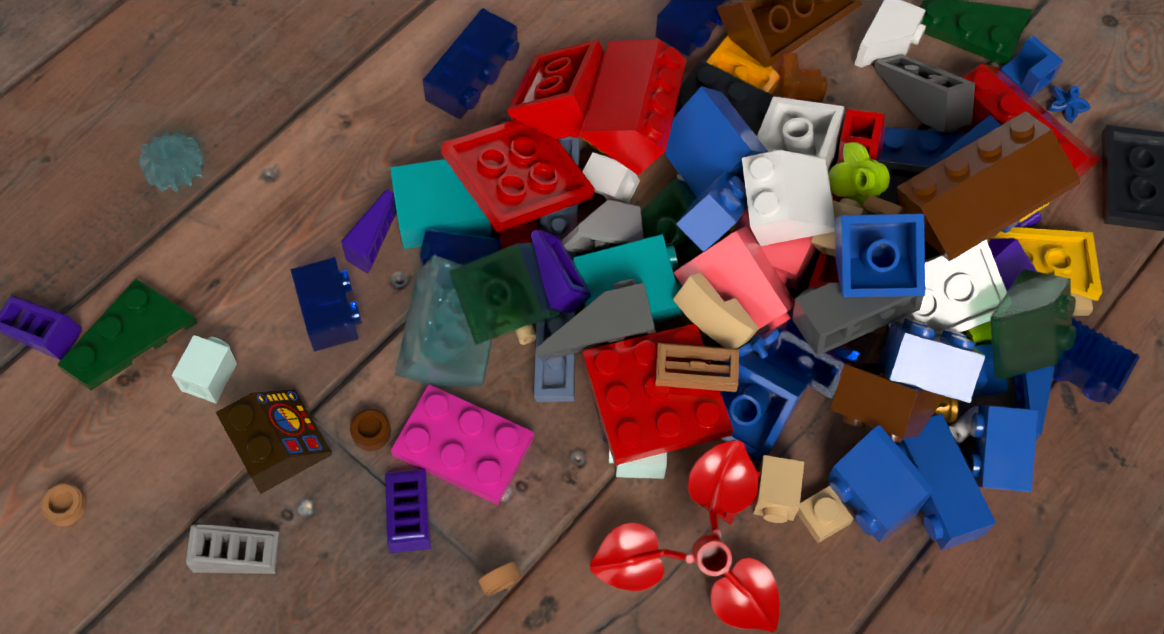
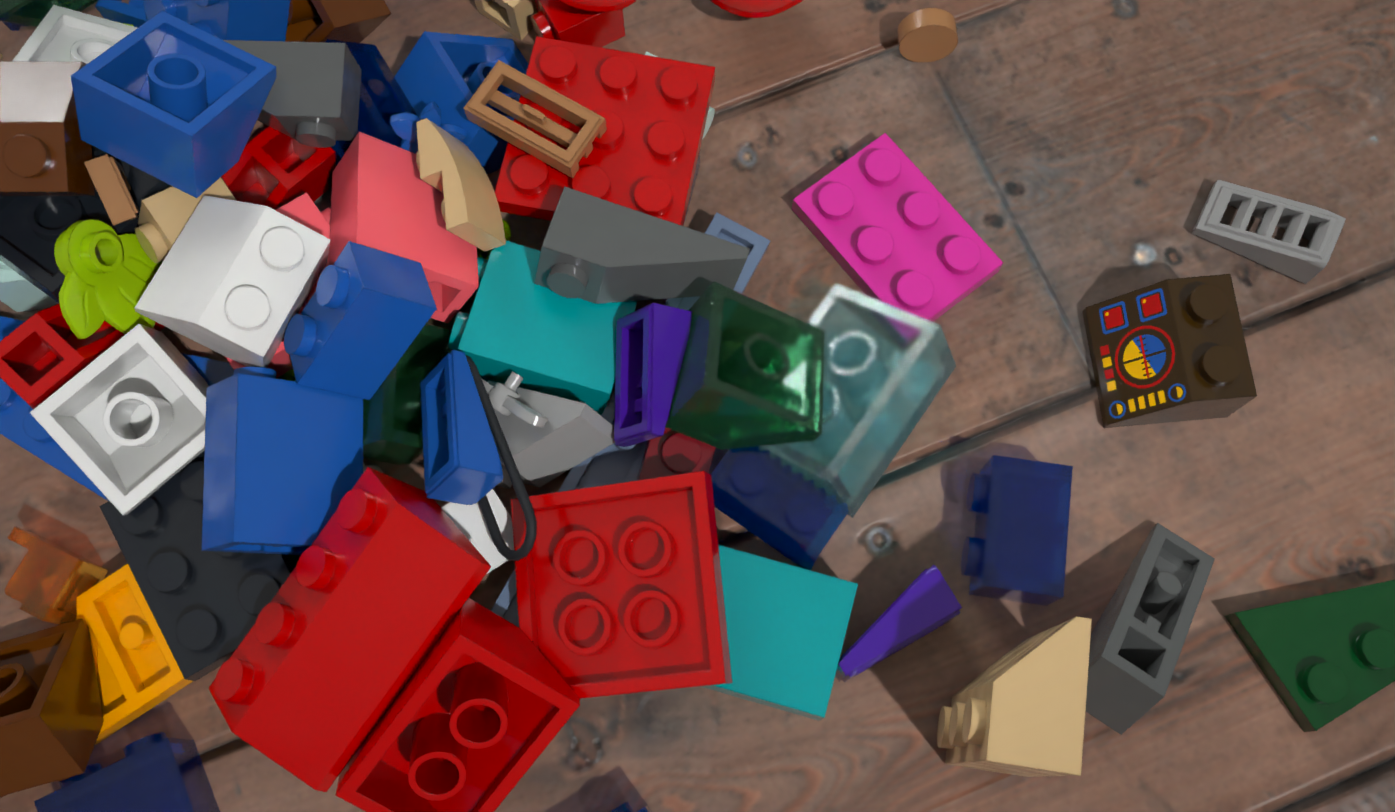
camera: 150 degrees left, 10 degrees up
(205, 368) = (1242, 507): light aqua brick -> none
(242, 286) = (1144, 629): none -> dark grey slope
(298, 193) = (1024, 708): none -> tan slope
(370, 430) = (1017, 314): reddish brown tile -> none
(408, 540) = (1023, 139): dark purple slope -> none
(570, 160) = (531, 523): none -> black piece
(624, 225) = (506, 401): none -> light grey piece
(635, 192) = (457, 438): none -> blue slope

